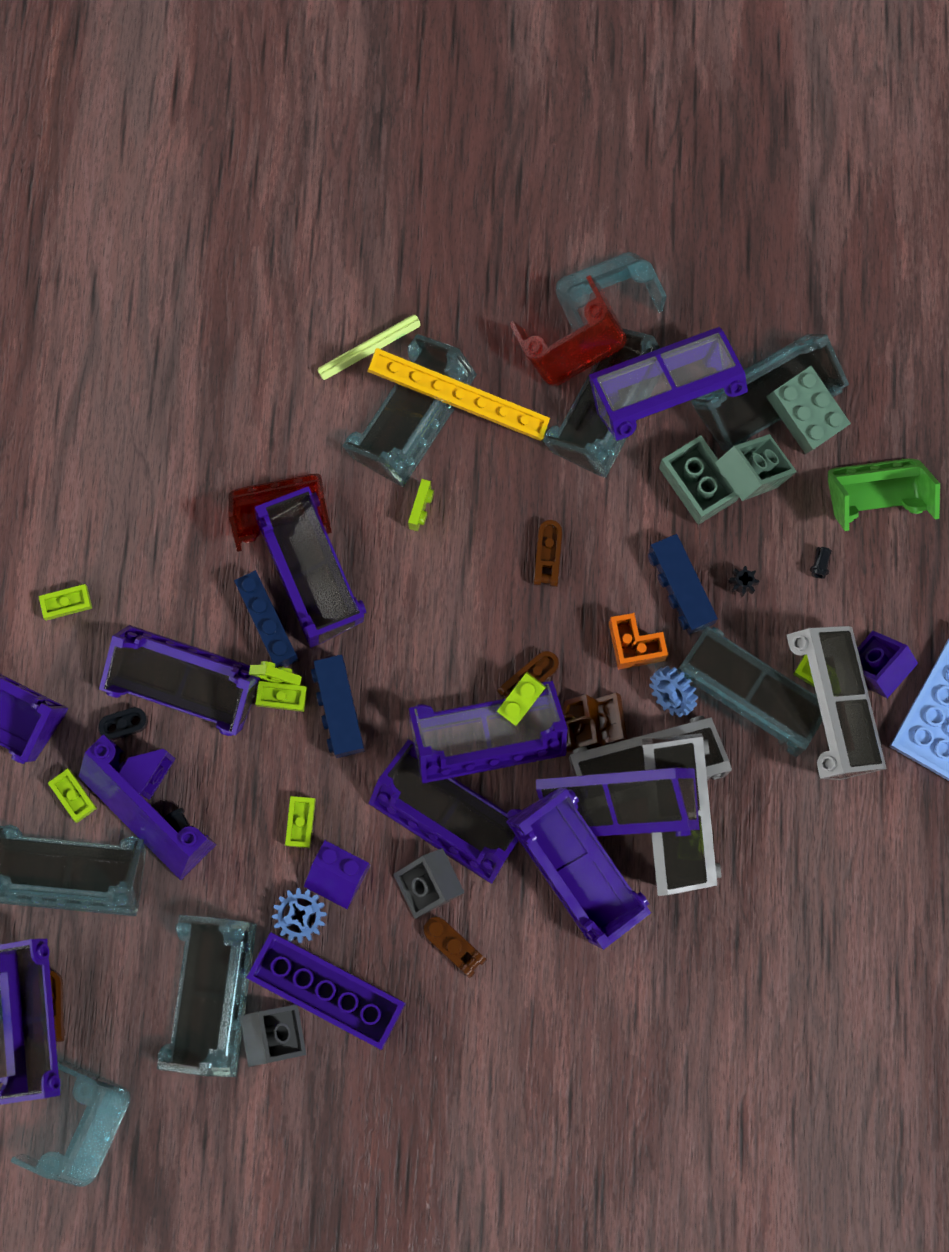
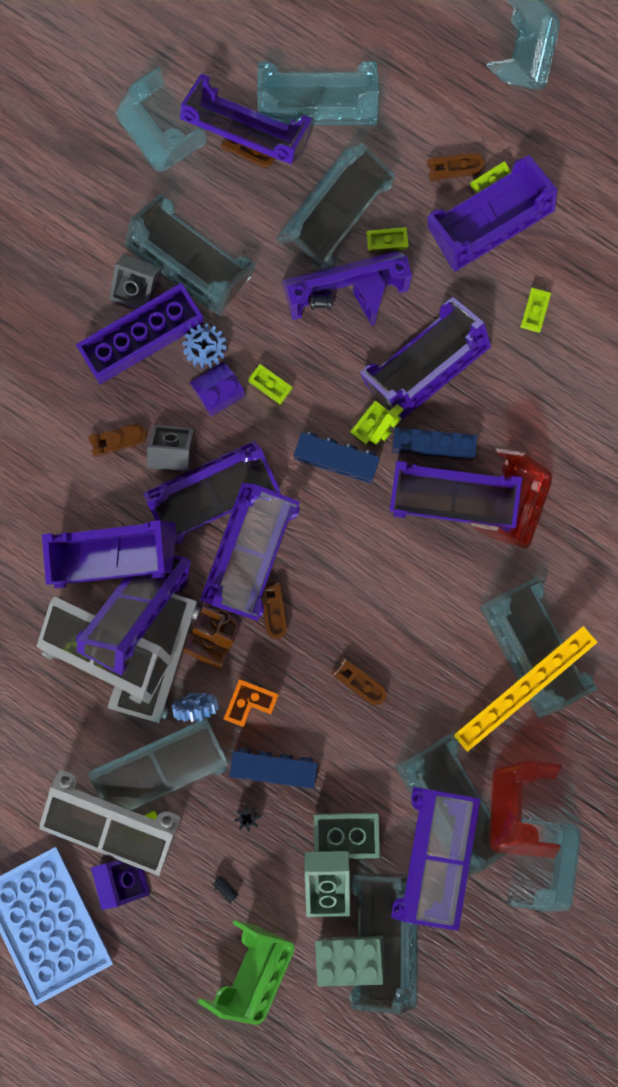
camera: 120 degrees right, 5 degrees up
(123, 723) = (418, 303): black plate -> none
(368, 347) = (610, 653): yellowish green axle -> none
(418, 513) = (449, 603): lime plate -> none
(521, 699) = (258, 589): lime plate -> none

